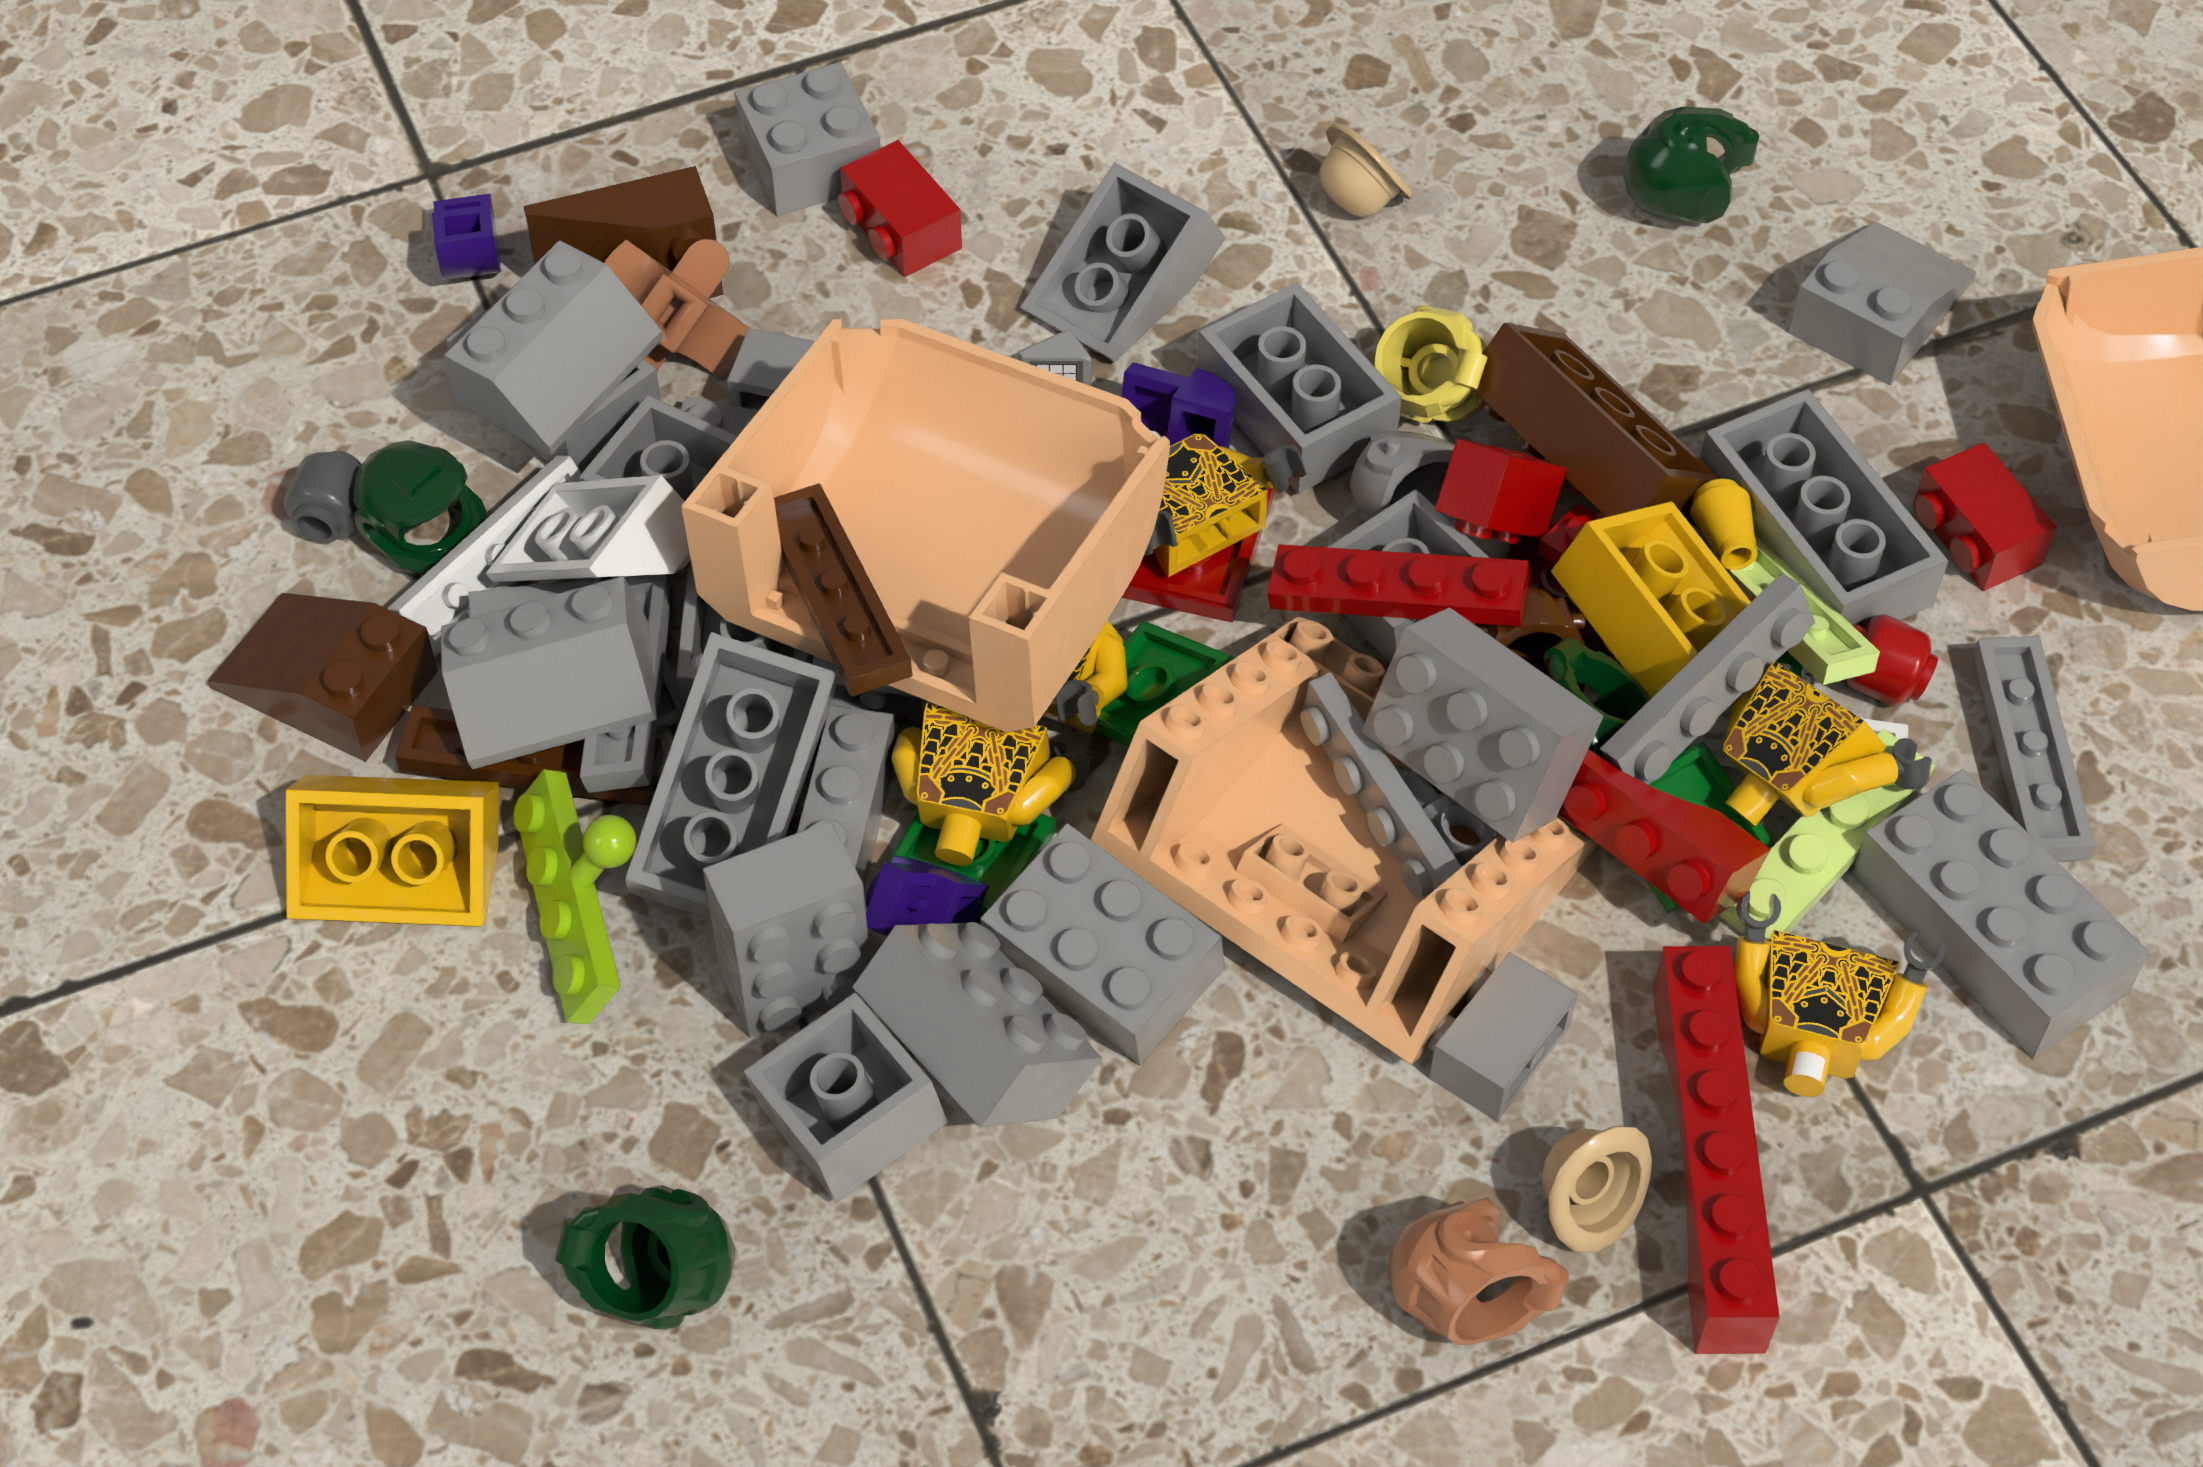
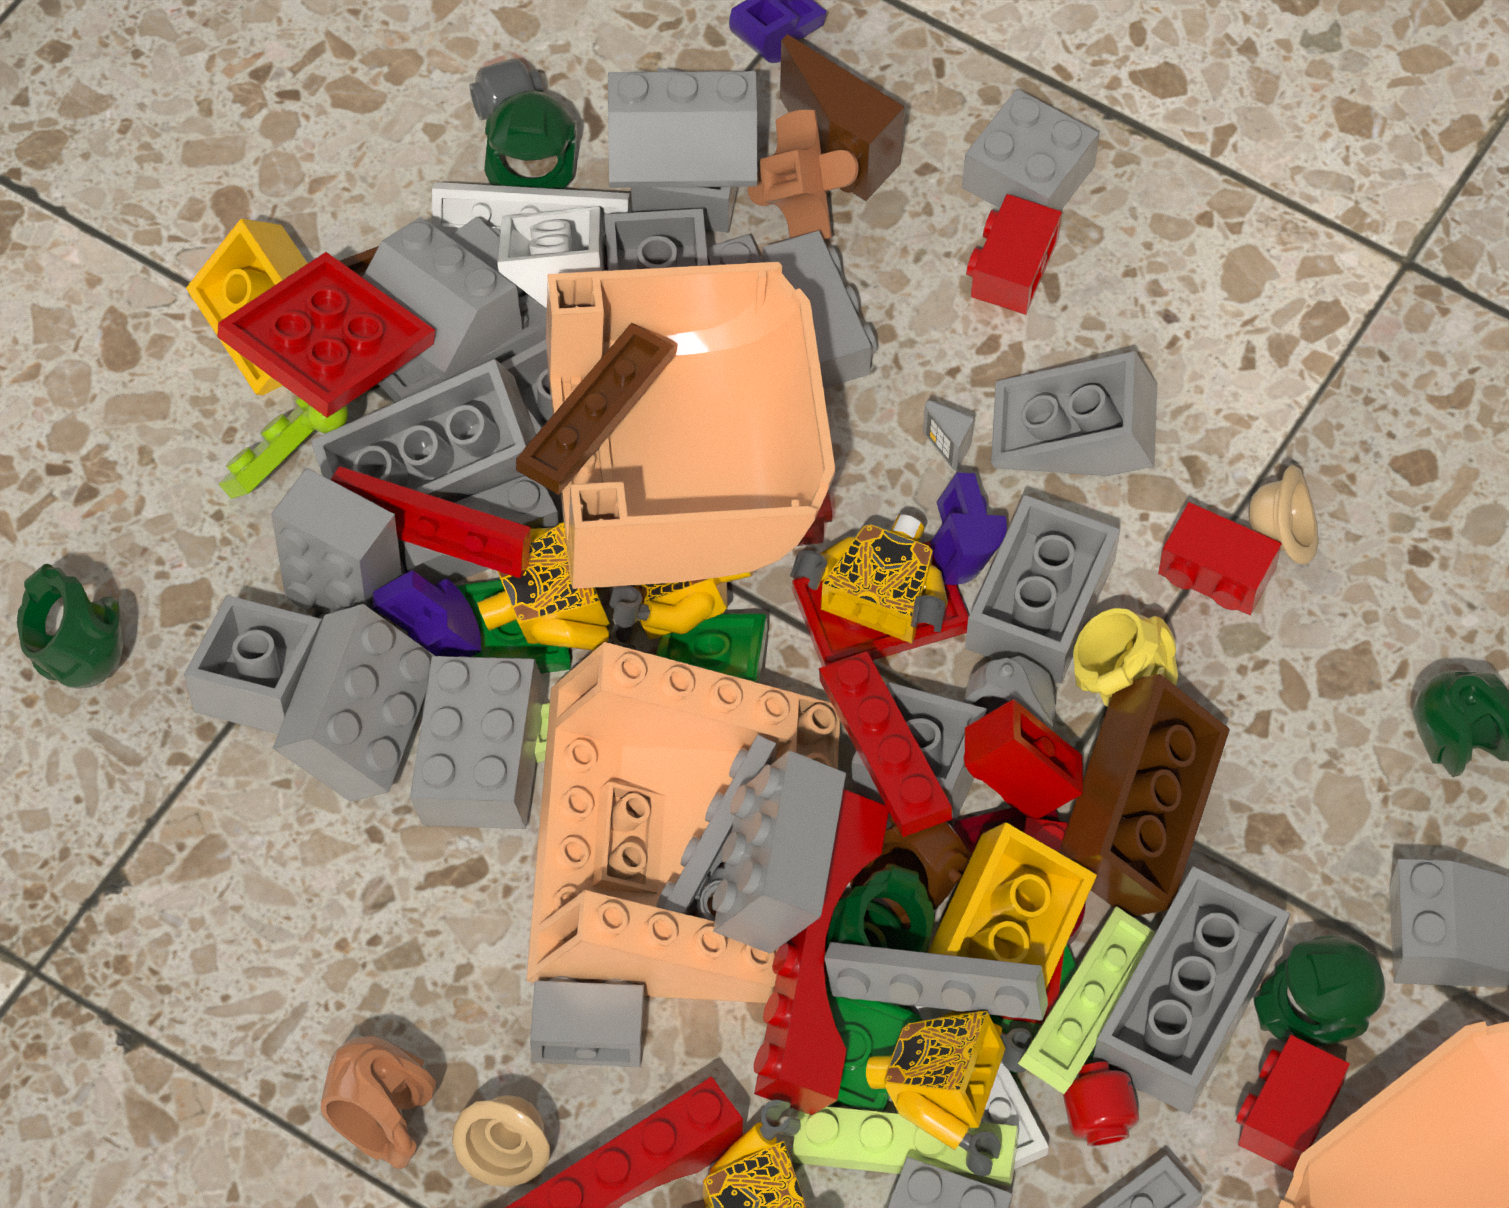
camera: 55 degrees right, 5 degrees up
(330, 669) = (373, 182): reddish brown slope -> none
(522, 780) = (326, 334): none -> red plate
(861, 797) = (446, 525): none -> red plate
(1363, 248) = (1219, 559): none -> red brick
(1726, 522) = (1125, 925): yellow cone -> none
(1898, 402) = (1331, 982): none -> dark green helmet

